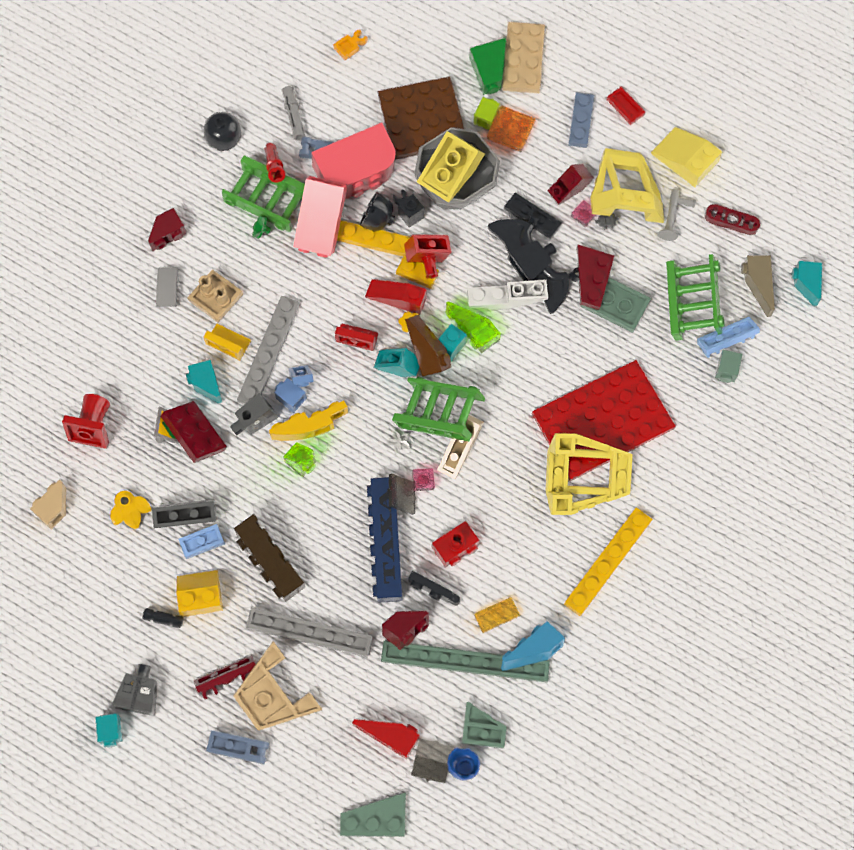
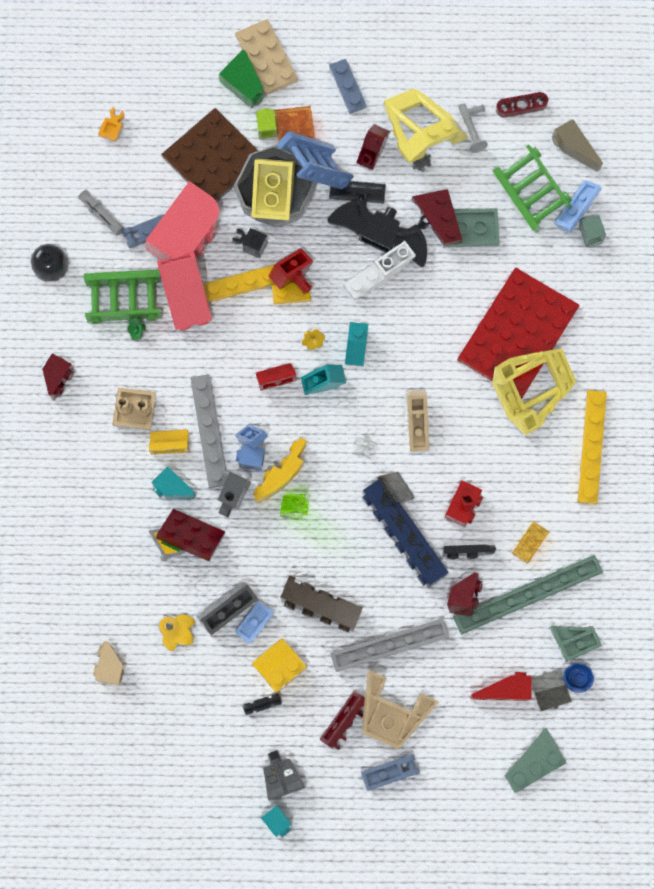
camera: 30 degrees left, 5 degrees up
(88, 427) = (99, 582): red plant -> none
(167, 287) = (88, 424): light grey slope -> none
(274, 164) = (117, 268): red pin -> none
(378, 213) = (229, 261): black cylinder -> none
(398, 294) = (287, 322): red slope -> none
(423, 479) = (404, 465): clear pink plate -> none
(428, 349) = (344, 354): reddish brown slope -> none
(441, 426) = (396, 413): bright green fence -> none
(477, 327) = (374, 313): clear neon green slope -> none
(507, 153) = (315, 160): none -> medium blue fence
(536, 648) = (581, 549): dark azure slope -> none
(583, 213) = (398, 166): clear pink plate -> none
(625, 105) = (377, 53): red tile -> none
(687, 155) = (453, 69): light yellow slope -> none
(808, 280) = (614, 123): teal slope -> none

